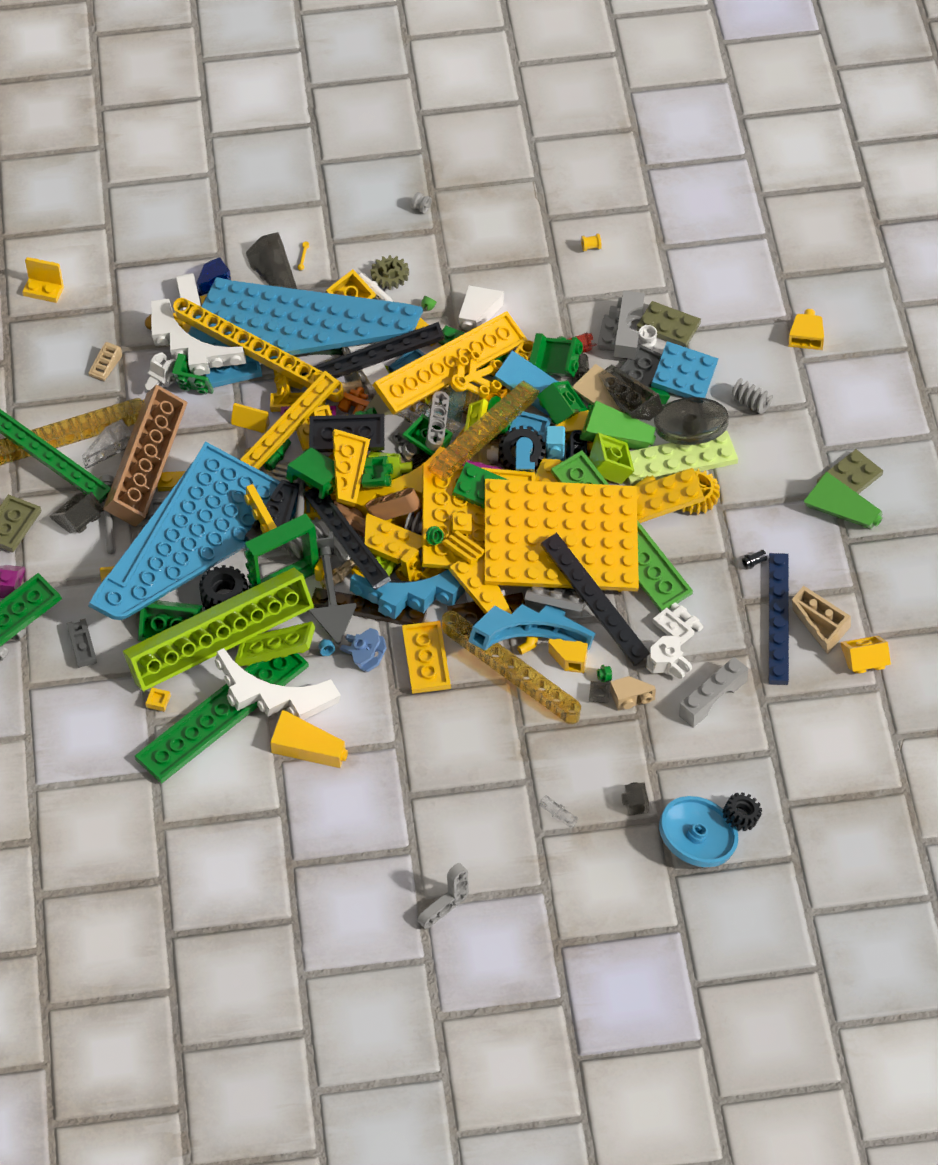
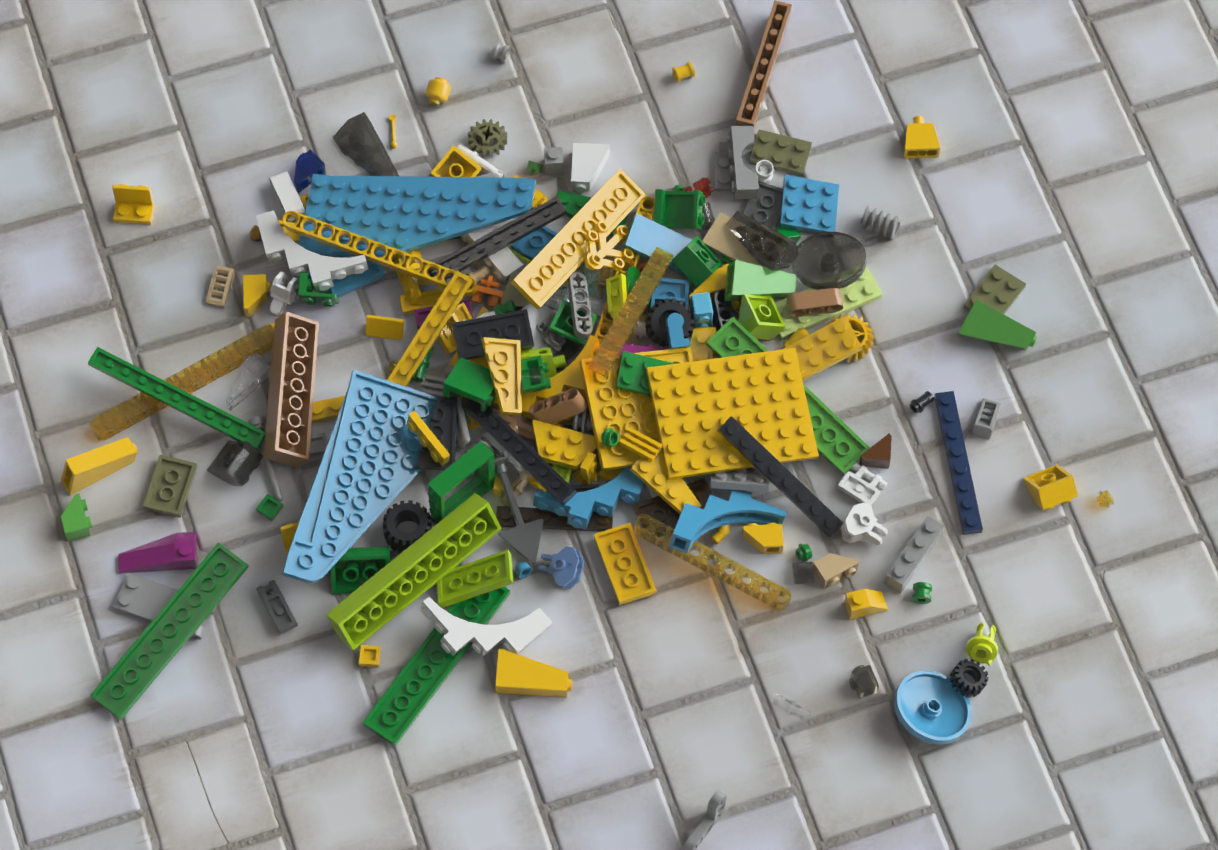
camera: 15 degrees left, 10 degrees up
(98, 556) = (269, 507): none -> green plate
(135, 371) = (255, 292): none -> yellow slope
(353, 226) = (437, 91): none -> yellow head
(447, 299) = (553, 161): none -> light grey brick
(461, 523) = (632, 417): yellow plate -> none
(654, 728) = (864, 603): none -> yellow slope
(668, 453) = (814, 302): none -> medium nougat beam
(670, 245) = (764, 64): none -> medium nougat brick
(699, 598) = (878, 455): none -> reddish brown slope
(713, 728) = (922, 593): none -> green wheel
(767, 782) = (982, 648): none -> neon yellow piece
(816, 583) = (984, 429): none -> light grey slope
(821, 618) = (1000, 457): tan wedge -> none
(918, 673) = (1105, 499): none -> clear yellow plate

